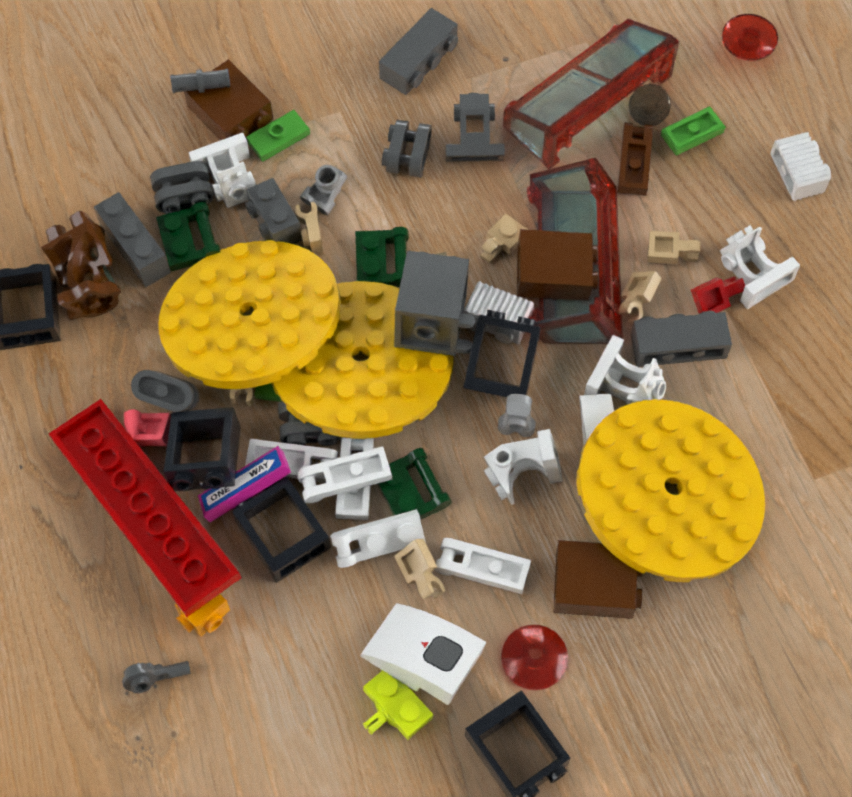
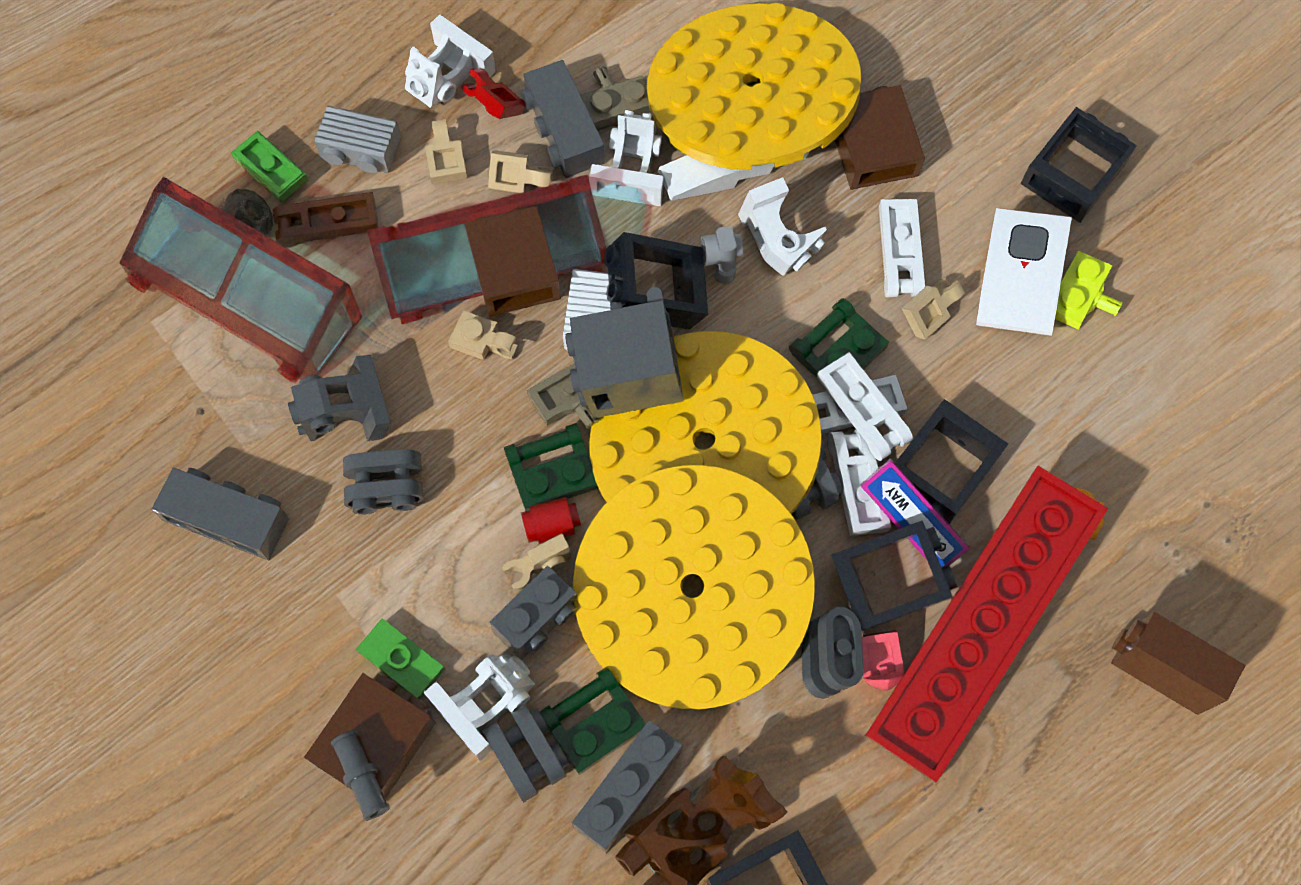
camera: 110 degrees left, 5 degrees up
(52, 627) = (1176, 663): none -> reddish brown brick
(142, 676) = (1172, 553): dark grey plate -> none
(325, 189) = (483, 565): light grey plate -> none
(339, 243) = (550, 520): none -> red brick
(377, 538) = (915, 358): white plate -> none
(530, 672) = (970, 192): clear red dish -> none
(690, 382) = (615, 98): none -> dark tan plate
(699, 191) = (357, 139): none -> light grey brick
(752, 29) = (107, 120): clear red dish -> none
(800, 166) = (294, 45): white brick -> none

